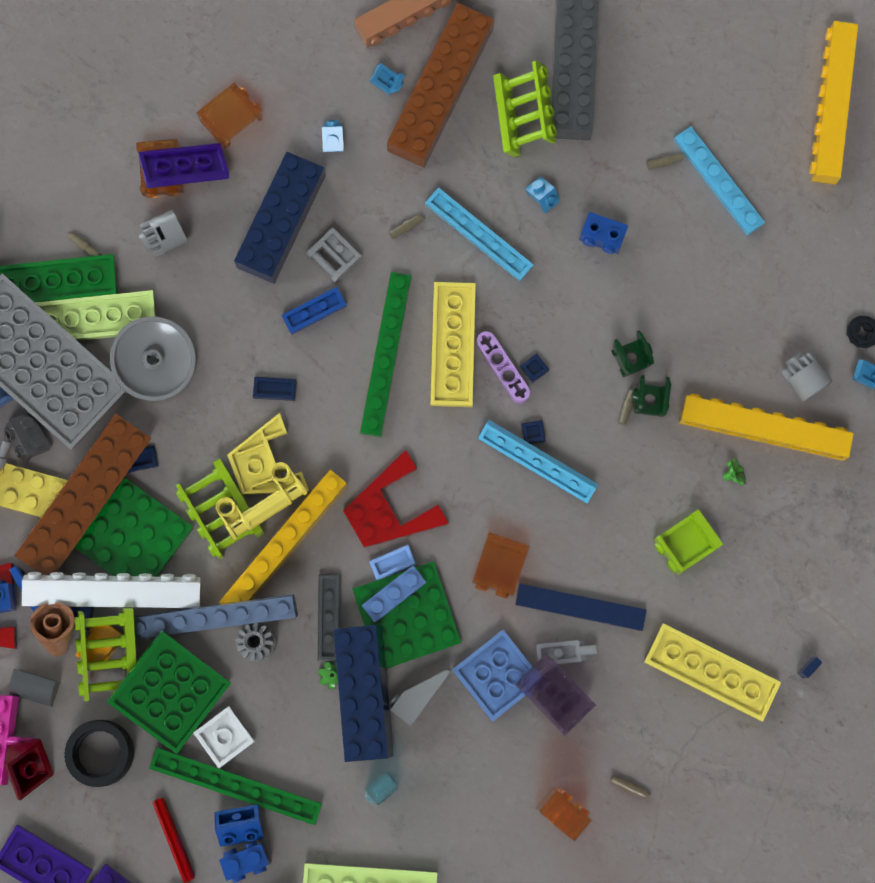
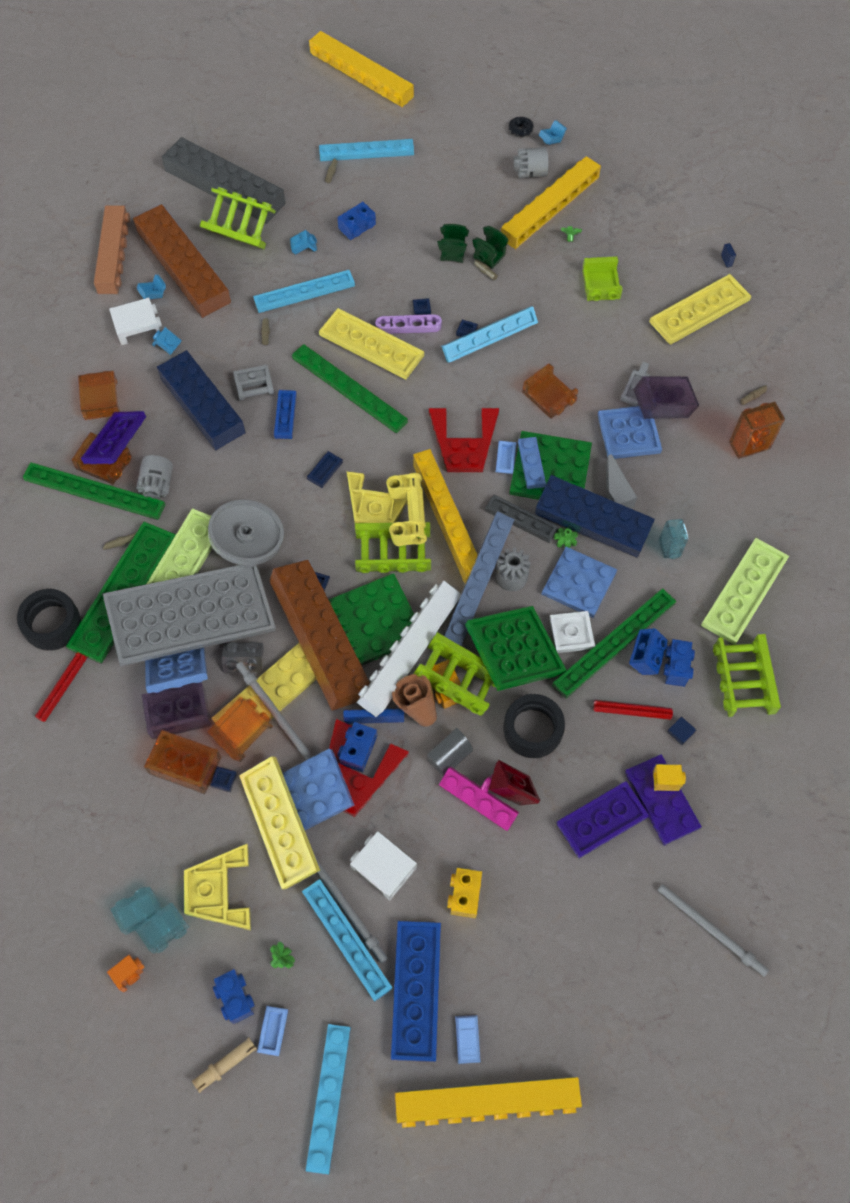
camera: 60 degrees left, 15 degrees down
(121, 184) = (94, 491): none -> green plate
(287, 715) = (579, 582): none -> medium blue plate
(338, 89) = (134, 318): none -> white panel
(581, 607) = (609, 361): dark blue tile -> none

